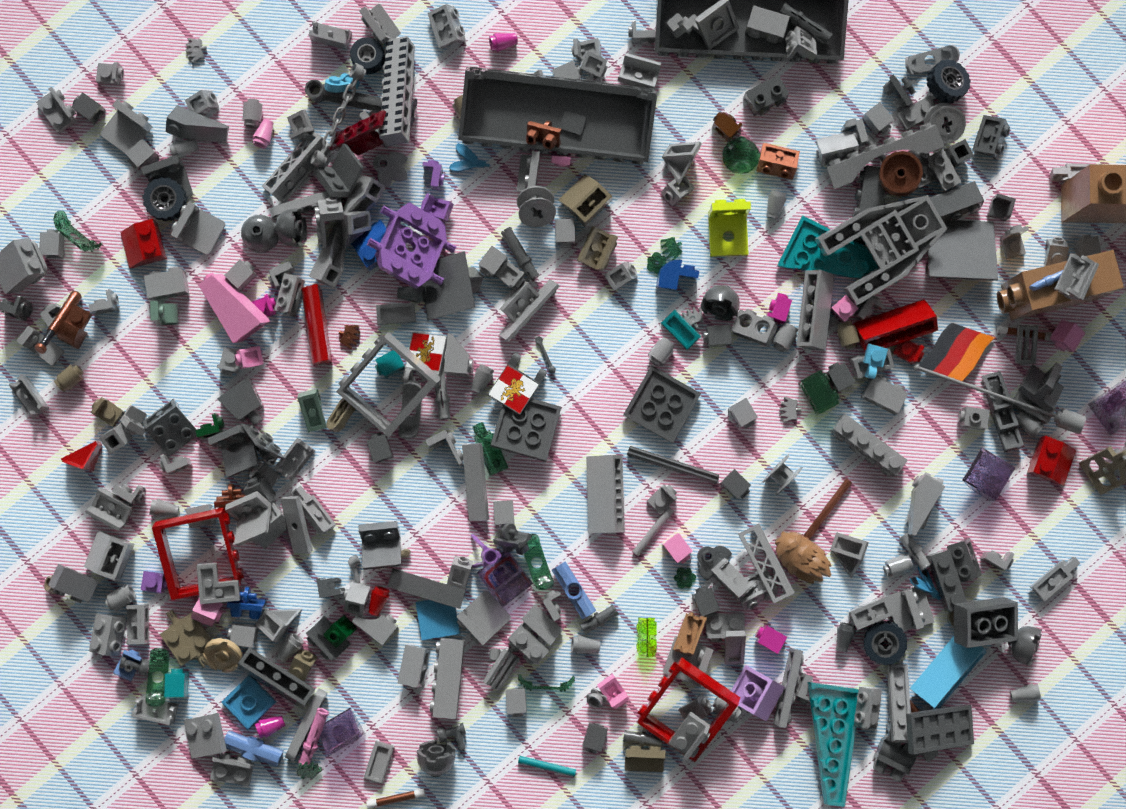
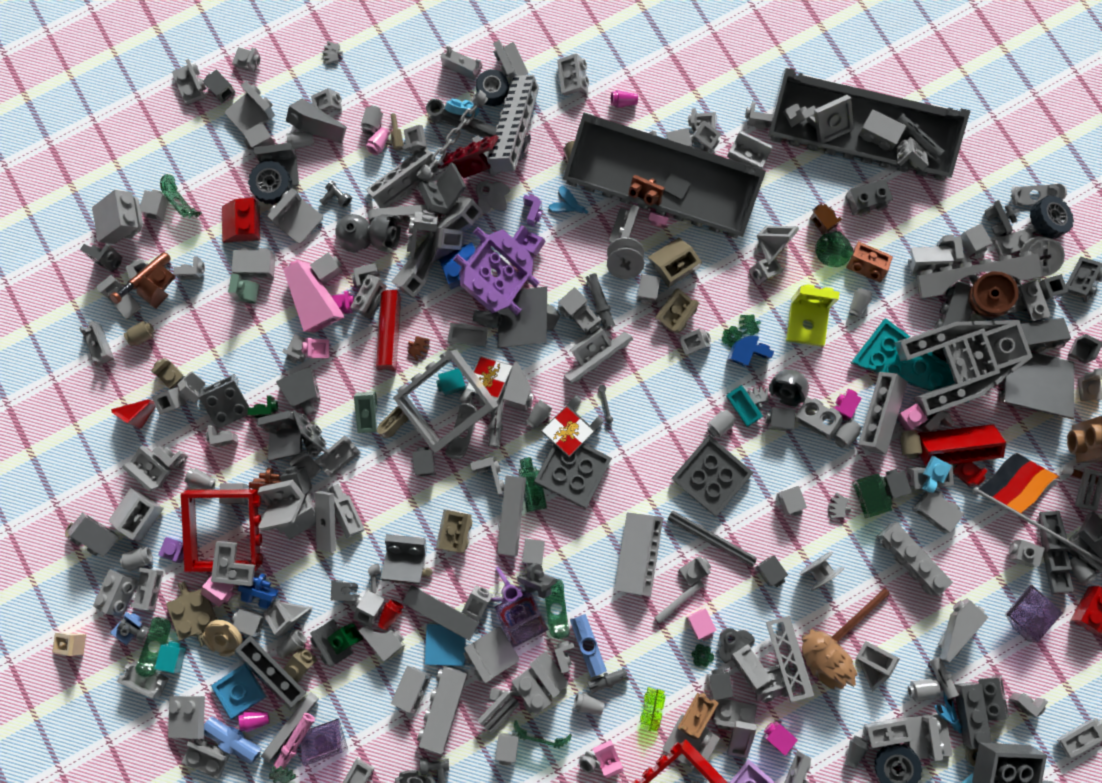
camera: 15 degrees right, 5 degrees down
(74, 691) = (69, 644): none -> tan slope
(242, 200) = (343, 199): none -> dark grey piece
(280, 123) = (396, 134): none -> dark tan axle
(423, 508) = (454, 531): none -> dark tan bracket

